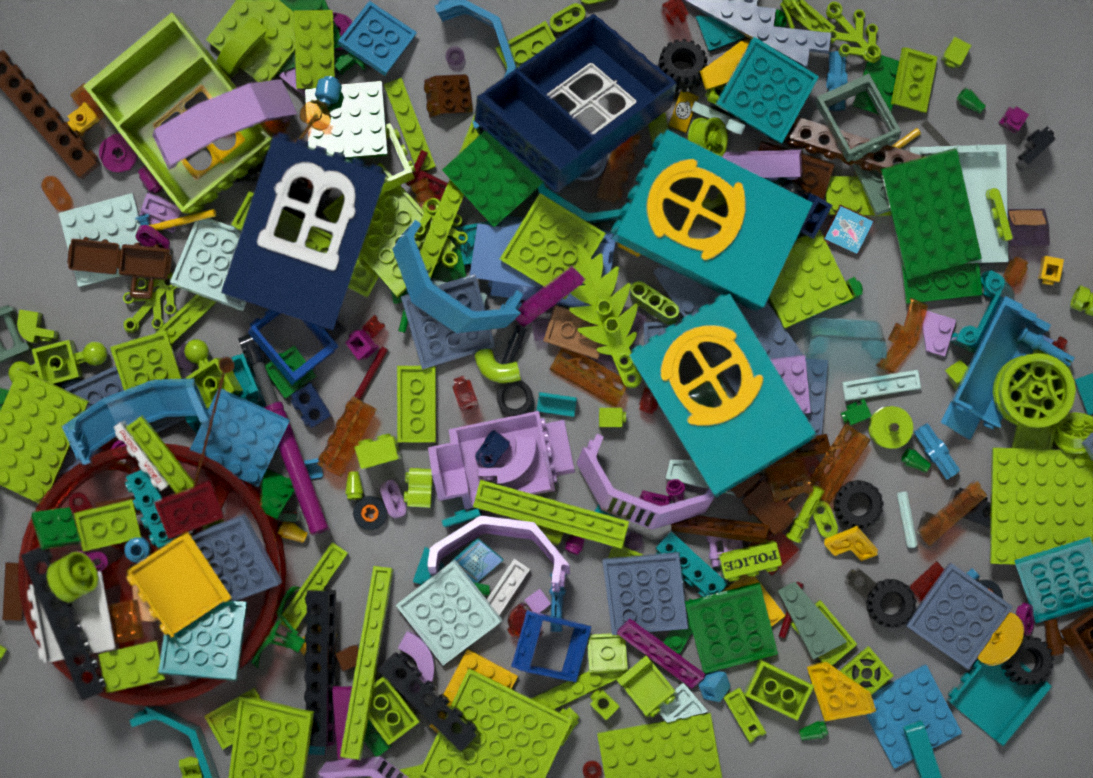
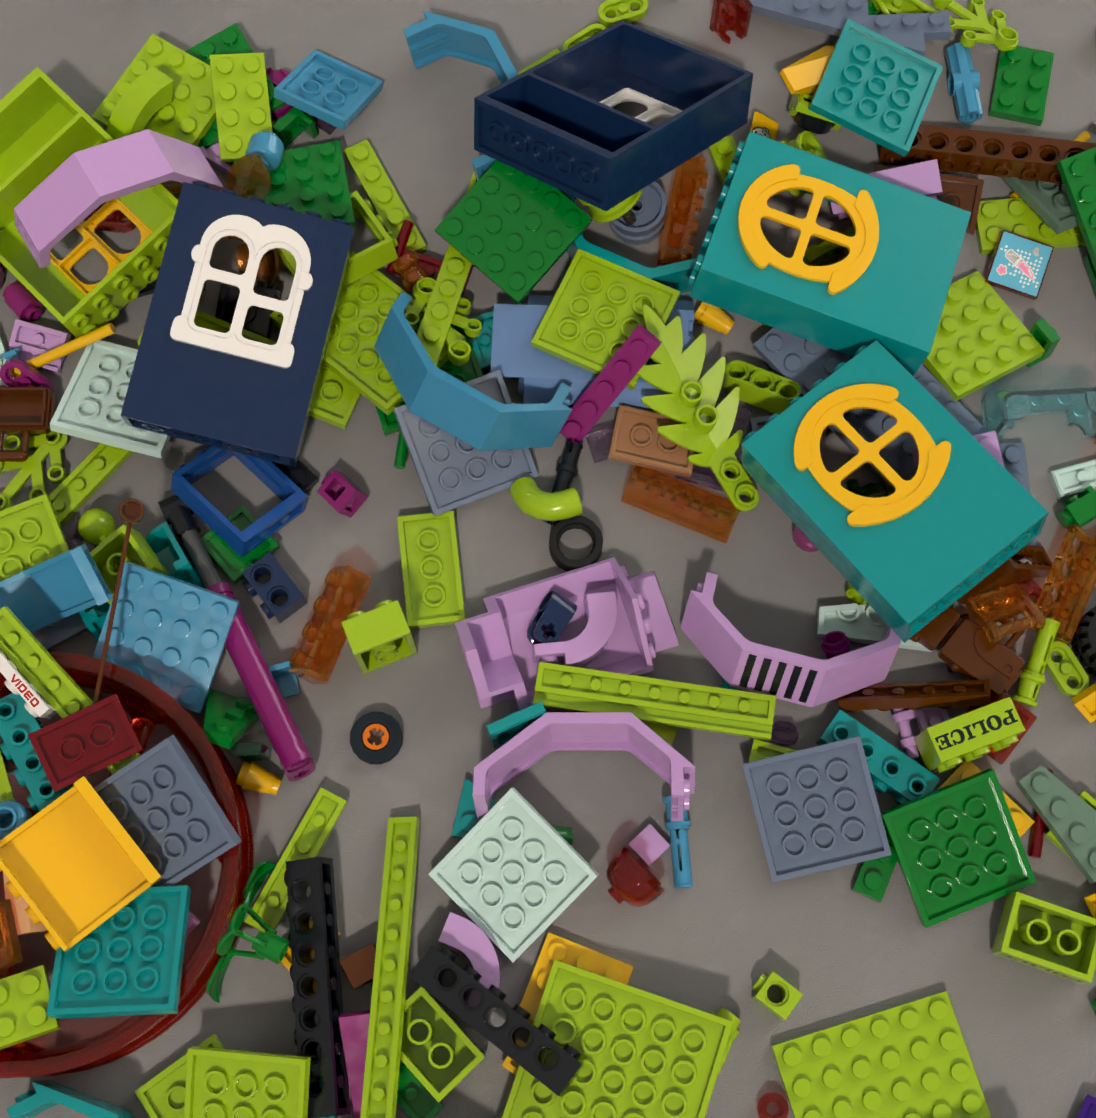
camera: 10 degrees left, 15 degrees down
(353, 486) = (348, 702): lime cone -> none
(371, 372) = (361, 530): dark red bar -> none
(373, 326) = (358, 466): clear red wheel -> none
(393, 498) = (409, 711): lavender plate -> none
(419, 487) = (448, 690): lime brick -> none
(447, 95) = (432, 150): reddish brown bracket -> none
(452, 50) = (435, 100): clear purple plate -> none
(464, 393) = (501, 545): clear red hips -> none
(478, 560) = (550, 787): piece -> none
(507, 585) = (600, 822): white plate -> none
(528, 641) = (646, 900): blue window -> none
(556, 404) = (639, 545): teal panel -> none
(571, 690) = (737, 967): lime plate -> none
(574, 544) = (695, 747): magenta cone -> none
(606, 653) = (769, 912): lime tile -> none
(611, 417) = (723, 555): lime brick -> none
(647, 687) = (841, 959): lime panel -> none
(648, 402) = (775, 527): clear red brick -> none
(660, 653) = (854, 901): magenta plate -> none
(683, 706) = (896, 982): light aqua wing -> none
(688, 53) = (766, 67): black tyre -> none
(714, 686) = (946, 946): dark azure panel -> none
(716, 33) = (791, 42): teal wing -> none
(732, 124) = (835, 144): light aqua beam -> none
(744, 714) = (1000, 987): lime plate -> none
(815, 216) = (972, 250): dark blue brick -> none
(846, 91) = (1014, 75): sand green window -> none
(914, 80) = (1068, 68): lime plate -> none

